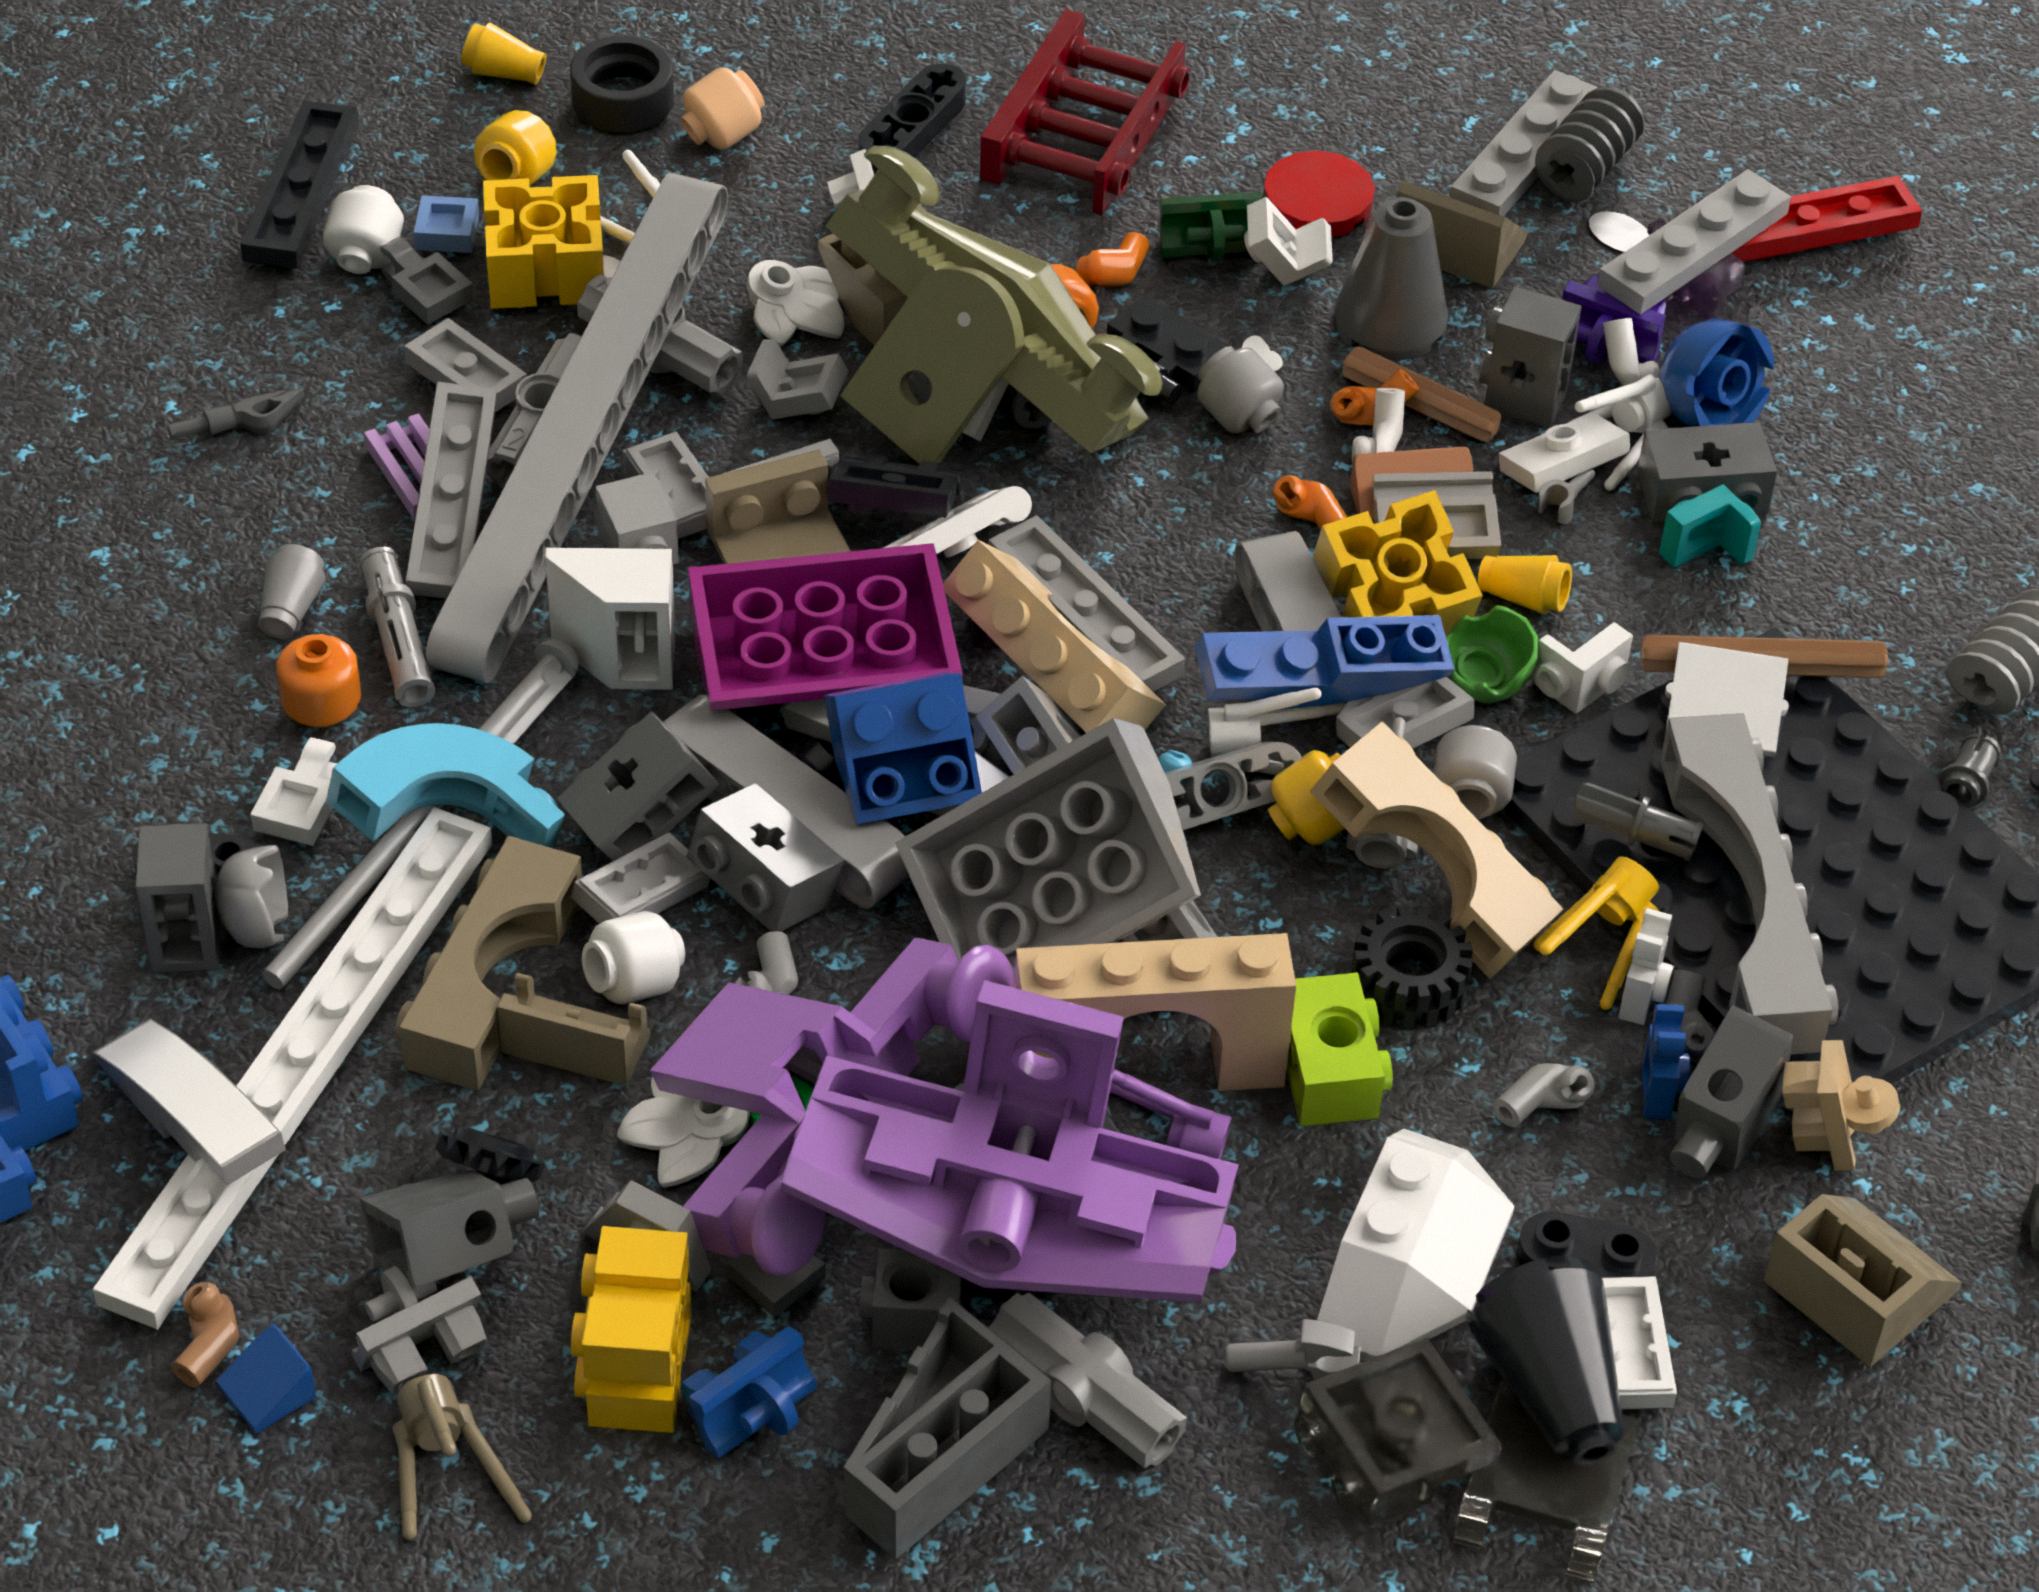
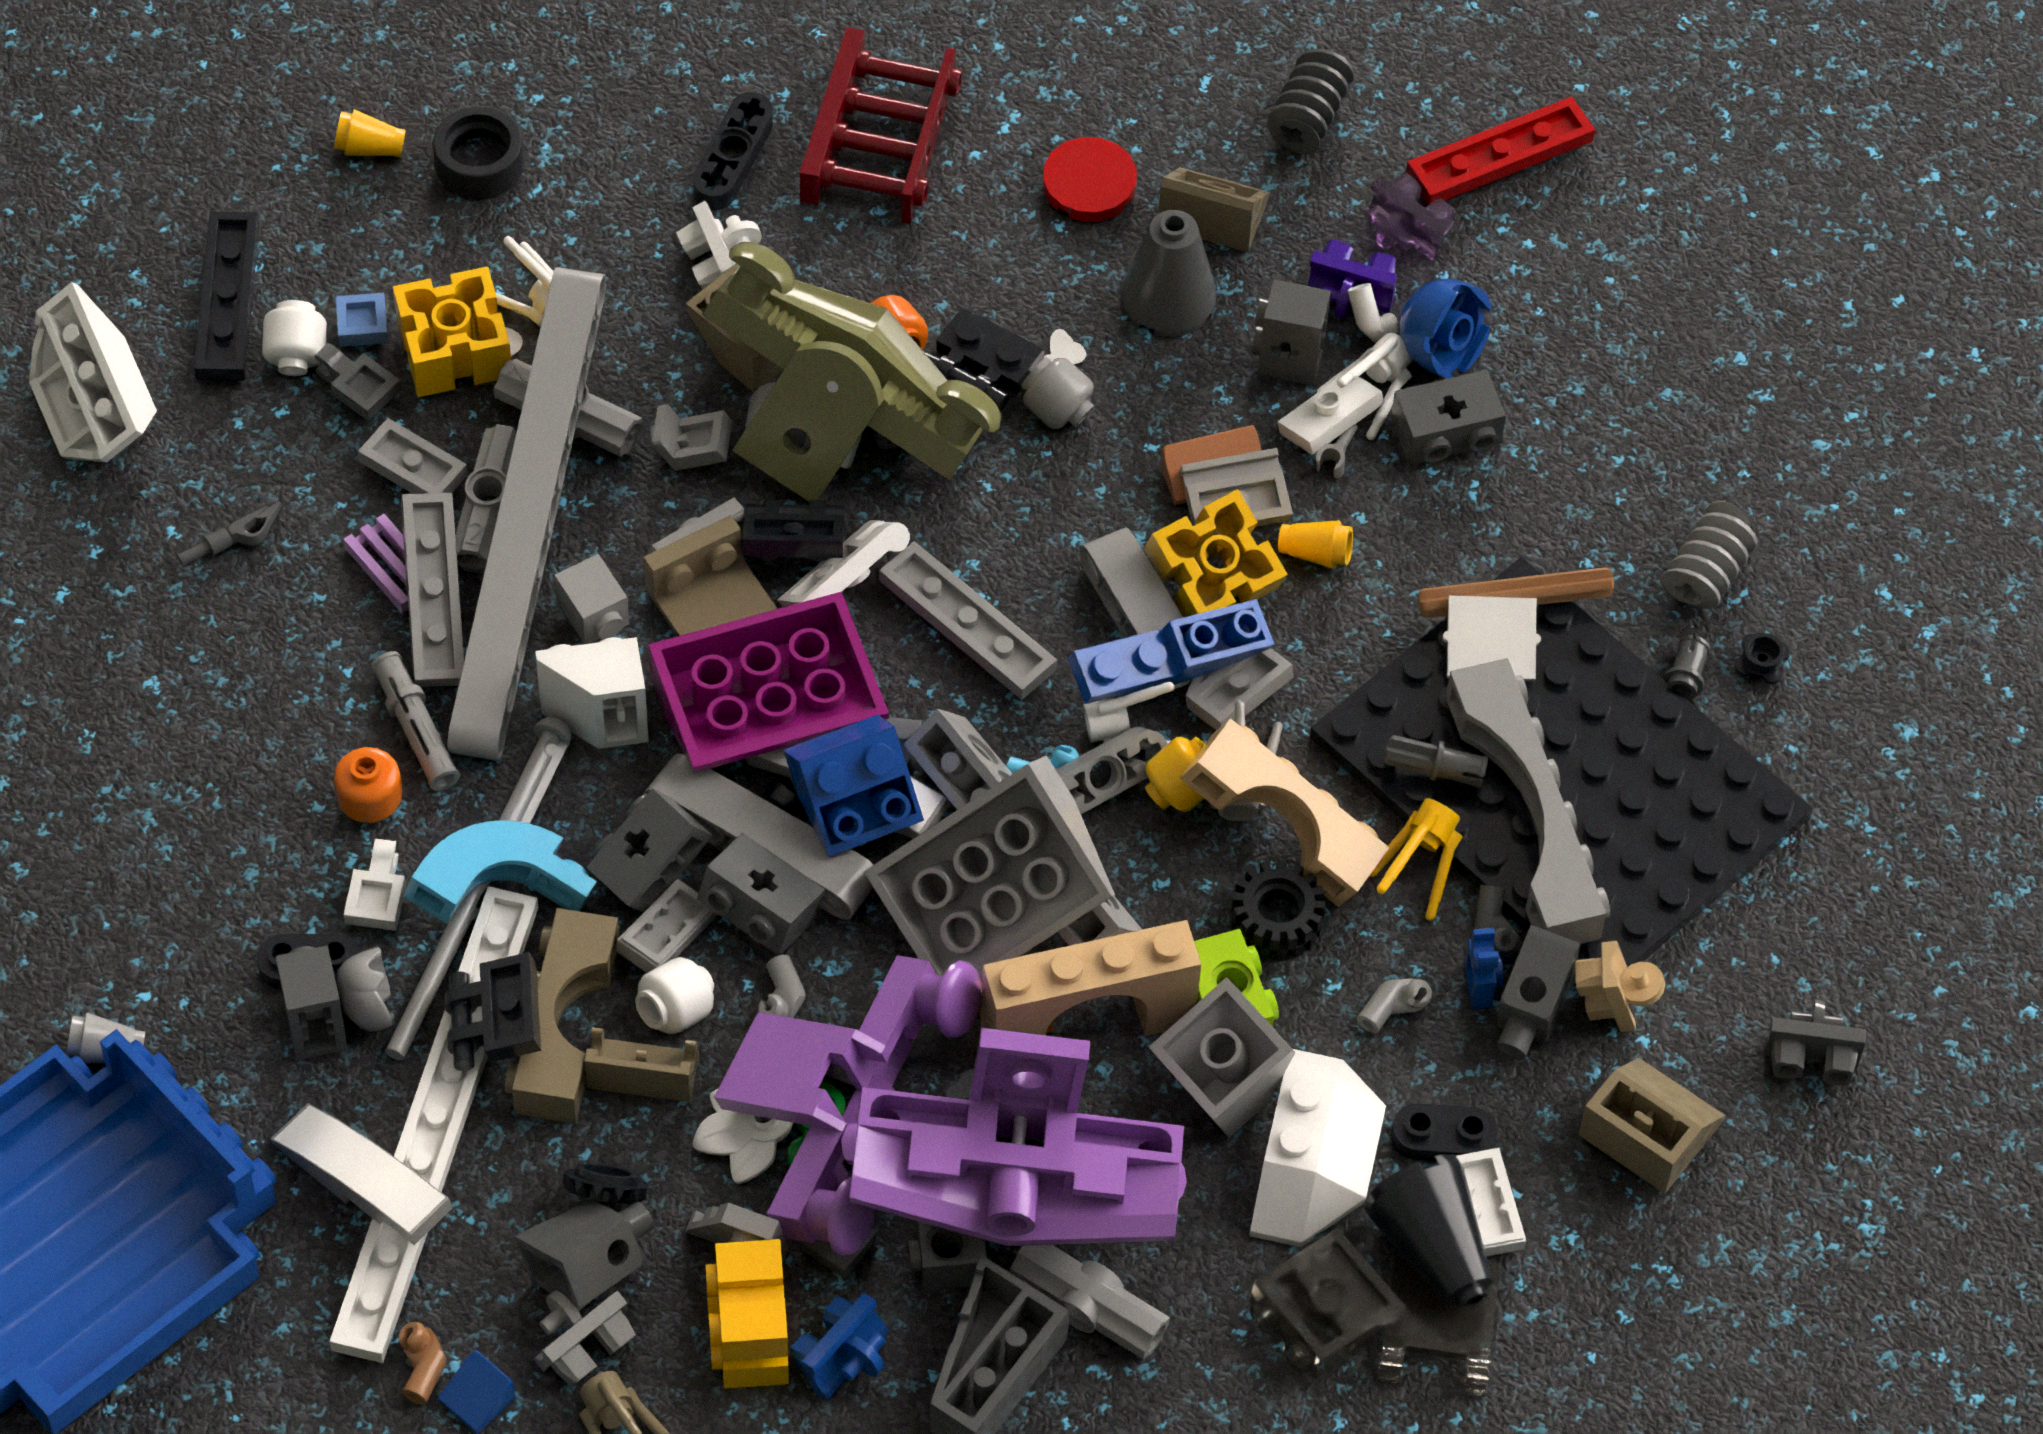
camera: 10 degrees left, 10 degrees up
(115, 235) = (86, 379): none -> white wedge
(289, 589) = (320, 699): light grey cone -> none
(415, 933) = (508, 1011): none -> black plate
(515, 148) = (403, 237): yellow head -> none
(678, 476) = (605, 535): light grey plate -> none
(722, 108) = (570, 167): light nougat head -> none
(794, 299) = (678, 356): white plate -> none
(1052, 652) = (979, 694): tan arch -> none
(1114, 266) = (932, 279): orange arm -> none
(1192, 1126) = (1135, 1080): medium lavender plant -> none
(1204, 224) = (1005, 228): dark green hips -> none
(1281, 248) = (1073, 243): white bracket -> none
(1307, 500) = (1135, 491): orange arm -> none
(1313, 1114) = (1225, 1056): none -> light grey slope
(1321, 1350) = (1261, 1246): light grey bar -> none
(1357, 404) = (1168, 389): orange arm -> none
(1386, 424) = (1183, 412): white arm -> none
(1430, 400) = (1206, 371): medium nougat axle -> none
(1477, 767) = (1302, 729): light grey head -> none
(1492, 654) = (1300, 619): bright green hair -> none
(1508, 162) = (1244, 121): light grey plate -> none
(1586, 673) = (1371, 629): white bracket -> none
(1617, 230) = (1346, 179): sticker -> none
(1648, 975) = (1461, 890): white plate -> none
(1693, 241) = (1412, 198): light grey plate -> none
(1710, 522) = (1453, 466): teal bracket -> none

